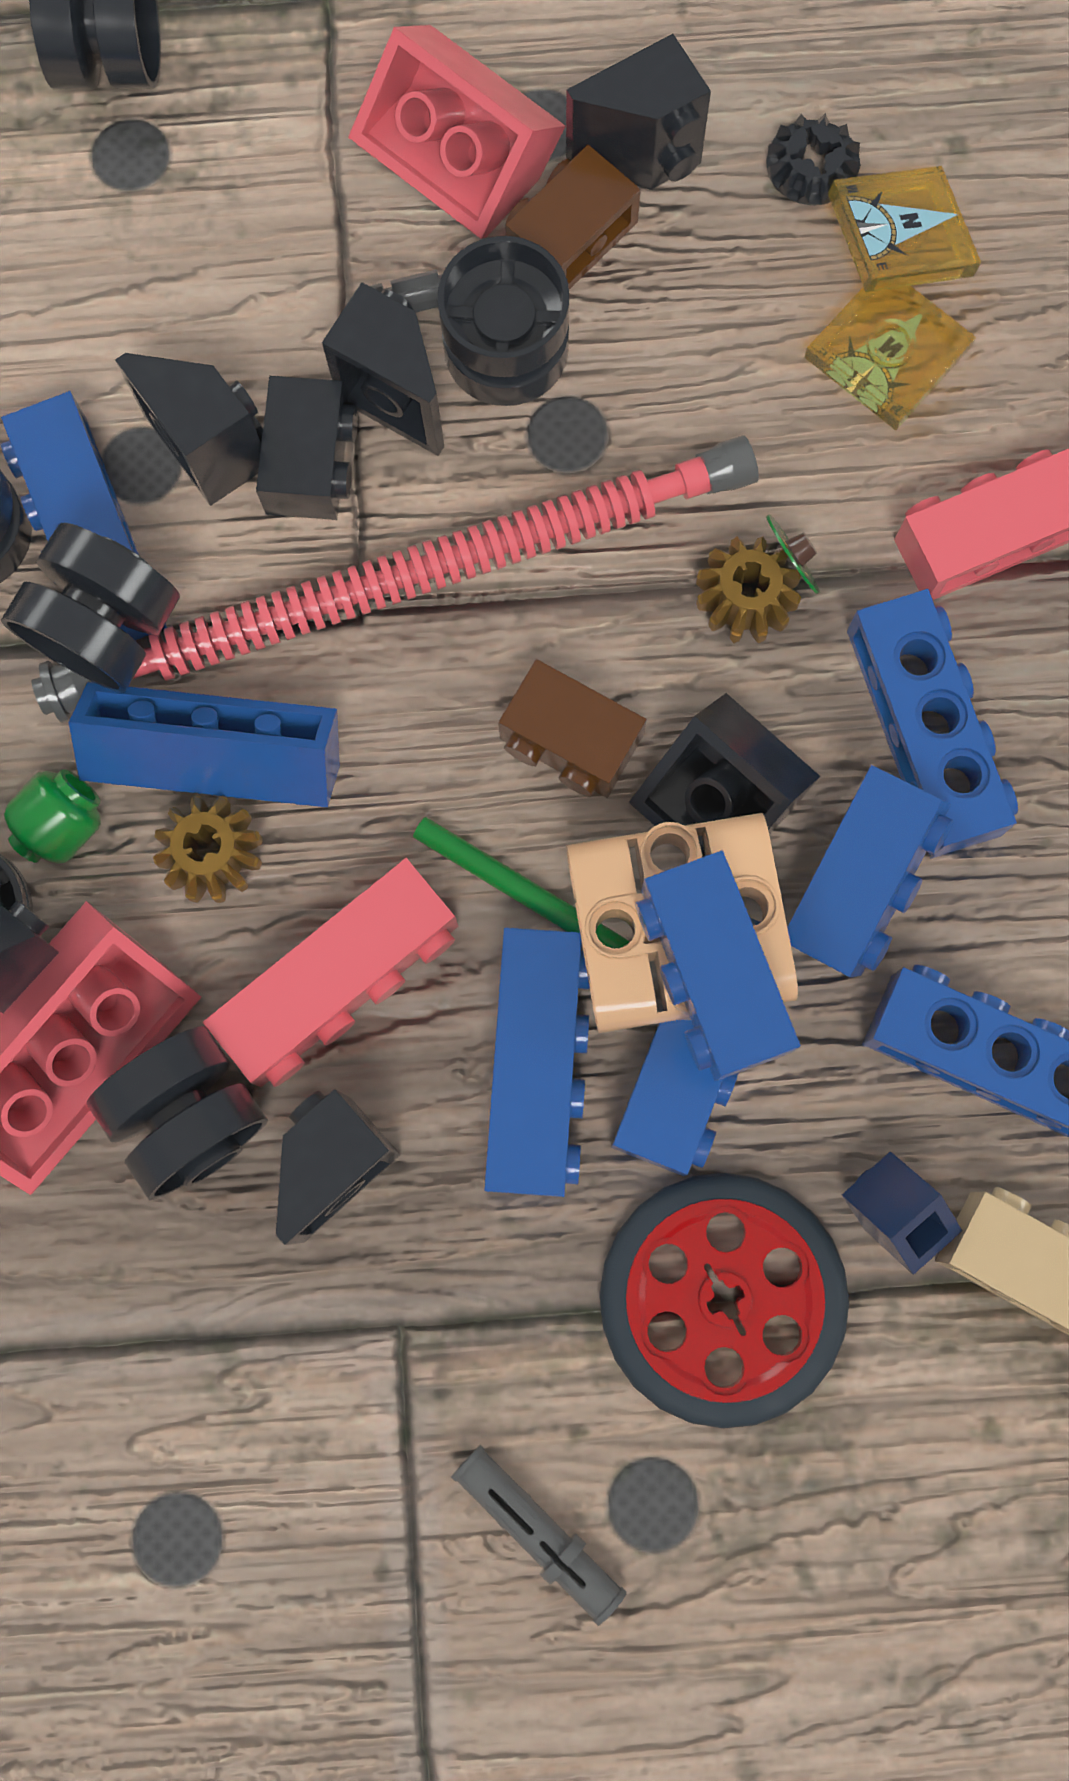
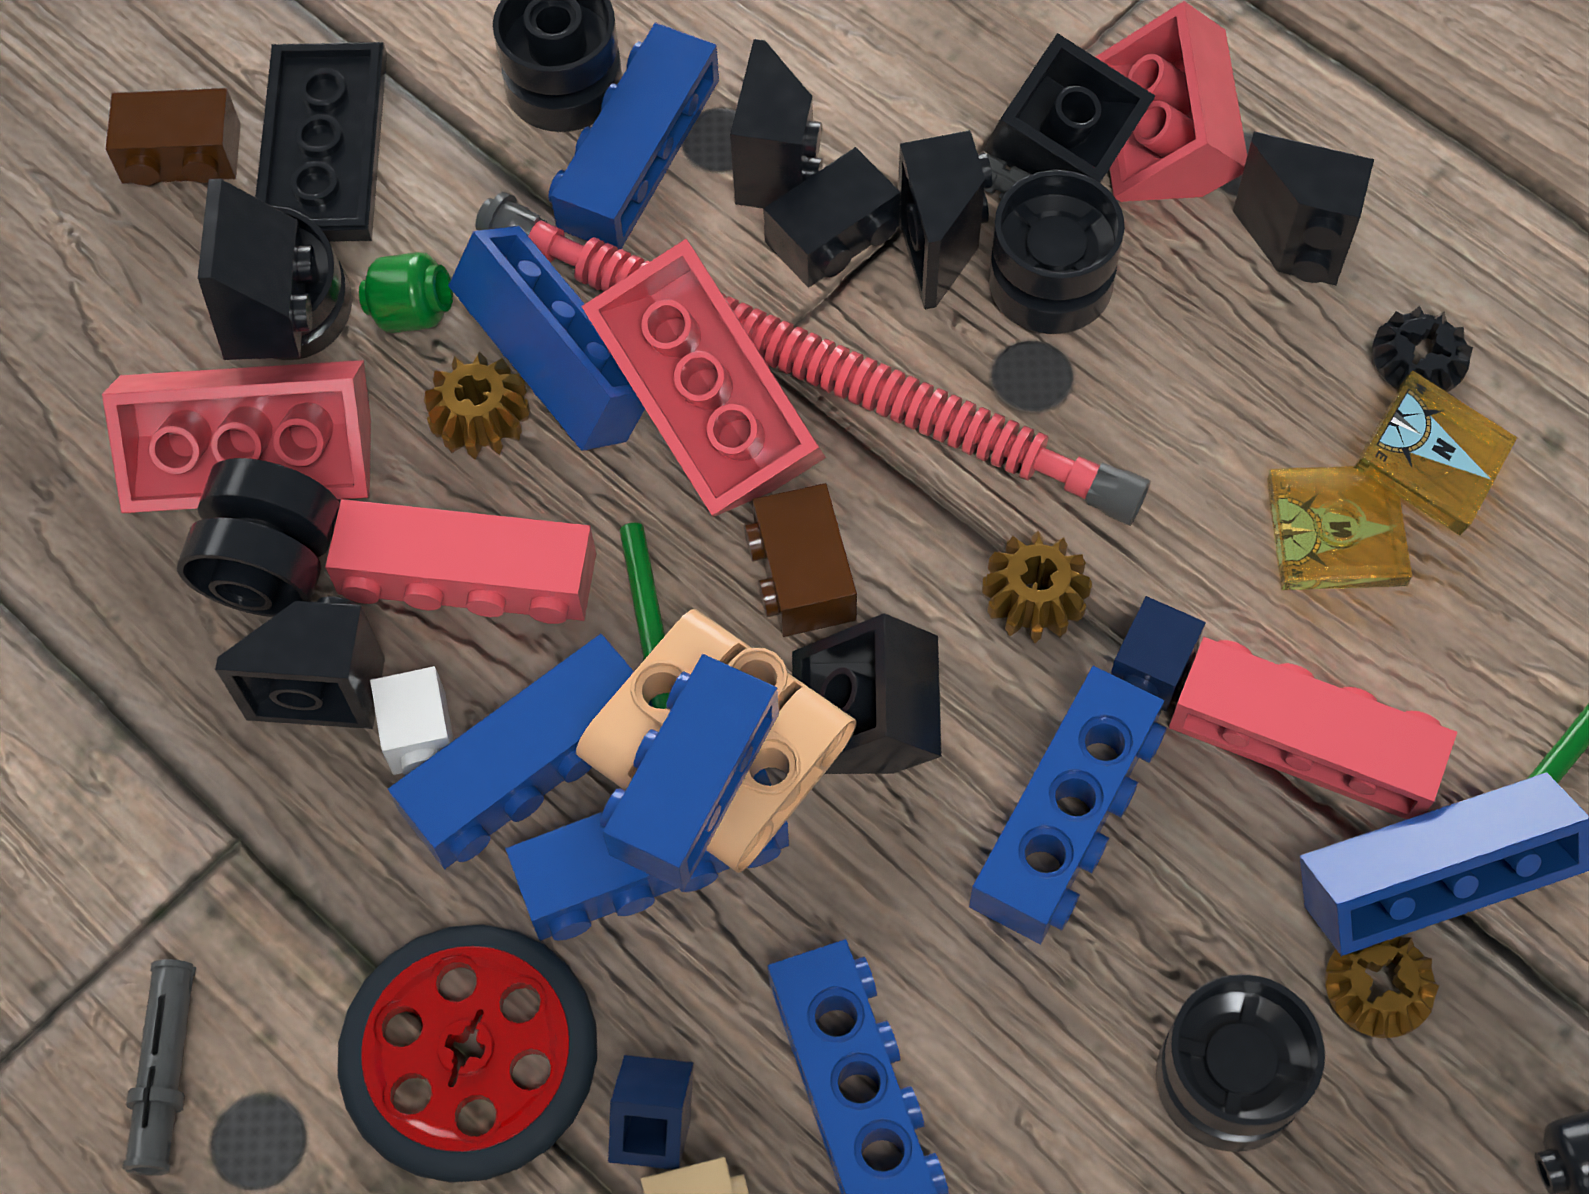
camera: 45 degrees right, 15 degrees down
(101, 591) = (579, 167): black wheel -> none
(368, 668) = (703, 380): none -> coral slope
(396, 204) = (1069, 115): none -> black slope
(437, 1123) = (411, 718): none -> white brick
(578, 212) = (1187, 237): reddish brown brick -> none
(798, 550) = (1095, 590): piece -> none
(868, 873) = (894, 847): blue brick -> none
(876, 558) = (1158, 649): none -> dark blue brick

